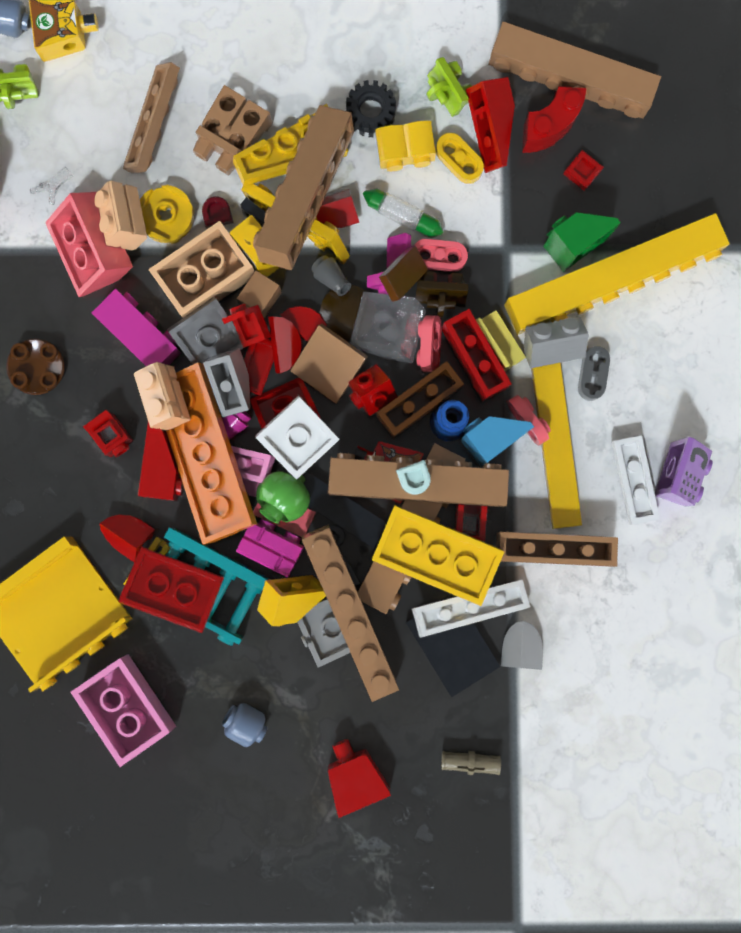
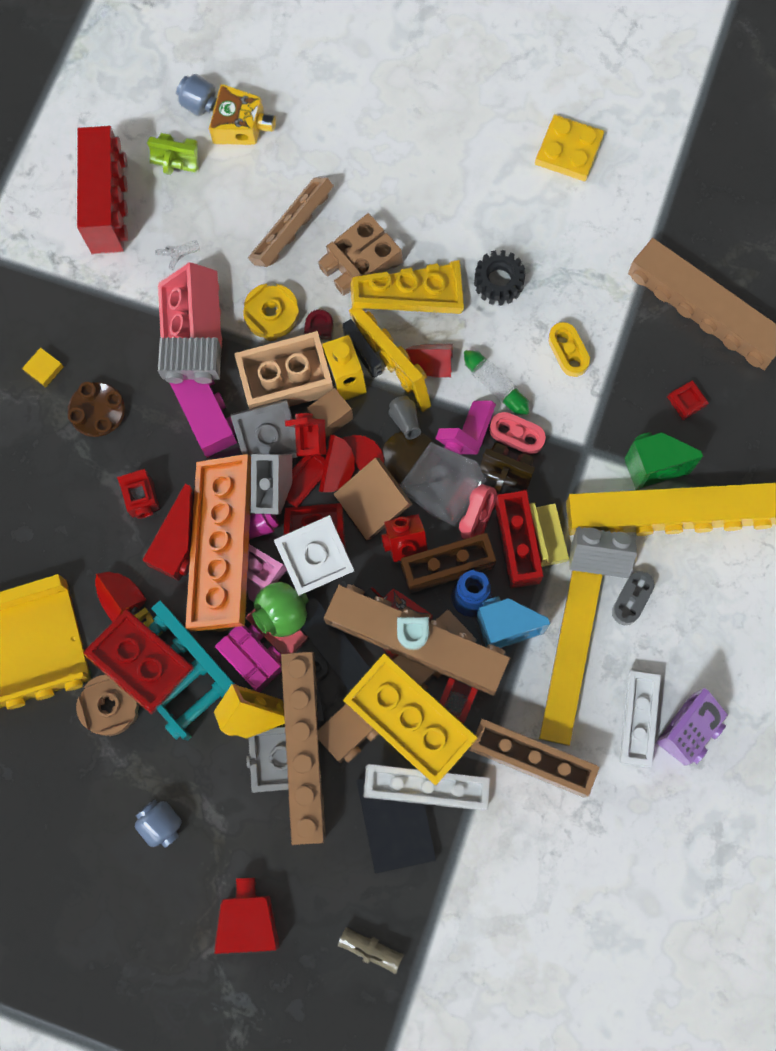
camera: 30 degrees right, 10 degrees down
(108, 290) = (189, 359): none -> light grey brick
(121, 215) = (228, 298): light nougat brick -> none
(123, 710) = (46, 763): bright pink brick -> none
(156, 654) = (100, 721): none -> medium nougat plate
(161, 396) = (201, 474): light nougat brick -> none
(304, 187) = (406, 326): medium nougat brick -> none
(403, 273) = (474, 436): reddish brown tile -> none
(405, 145) = (520, 321): yellow brick -> none
(446, 87) = (578, 281): lime hips -> none
(492, 117) = (614, 318): red slope -> none
(522, 647) = (466, 848): light grey brick -> none
(523, 411) = (557, 629): coral plate -> none
(550, 124) = (672, 343): red brick -> none

